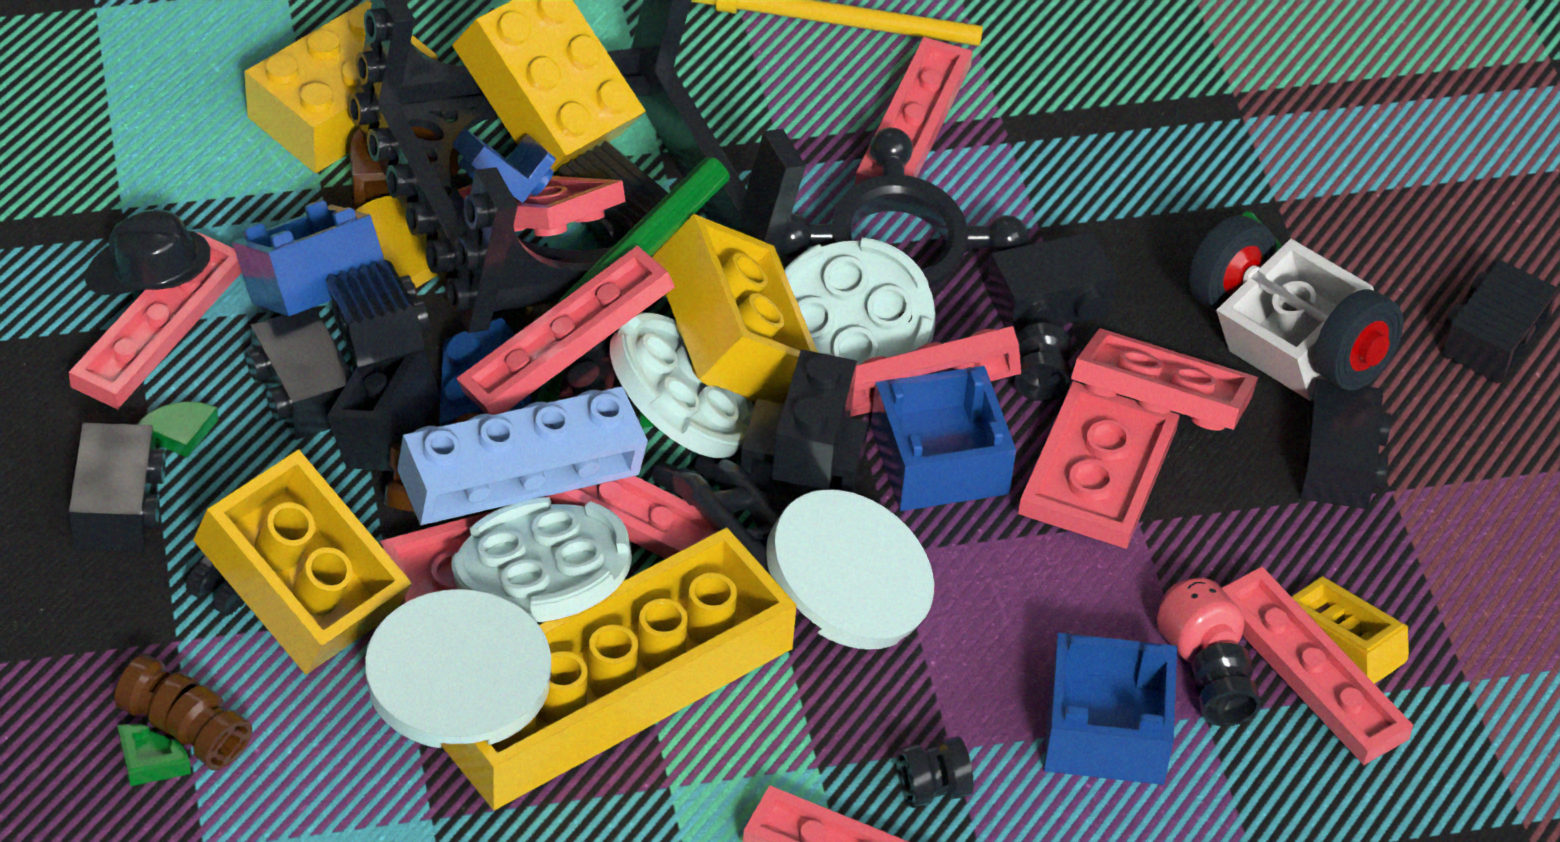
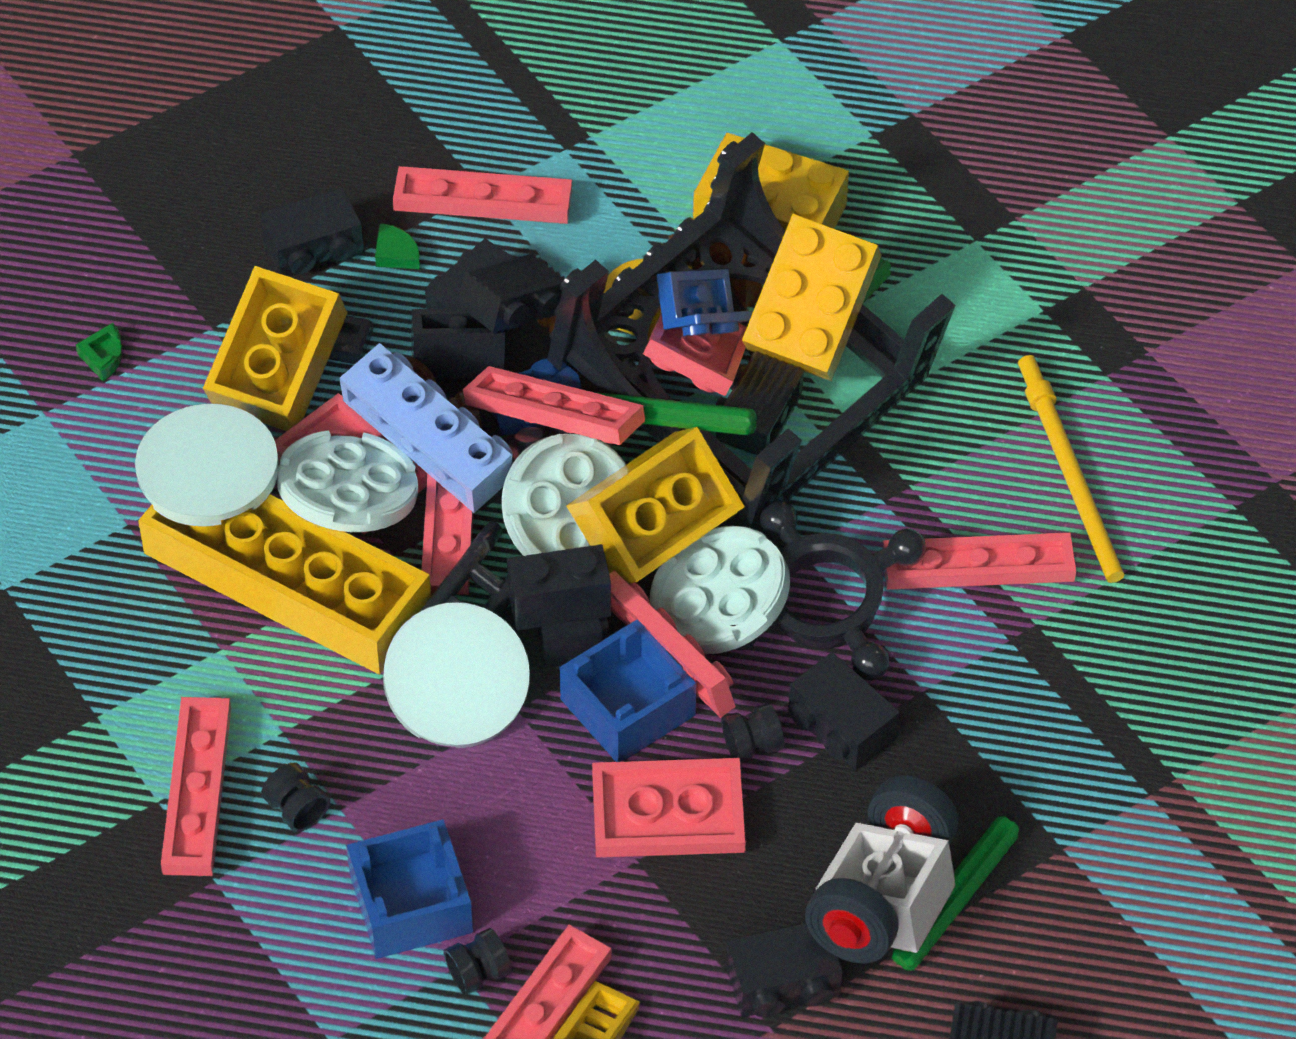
camera: 70 degrees right, 5 degrees up
(148, 254) = (532, 163): black piece -> none
(150, 689) = (144, 329): reddish brown wheel -> none
(214, 732) = (127, 371): reddish brown wheel -> none
(292, 261) = (564, 236): blue container -> none
(1164, 380) = (773, 817): coral plate -> none
(1198, 616) = (532, 922): coral head -> none

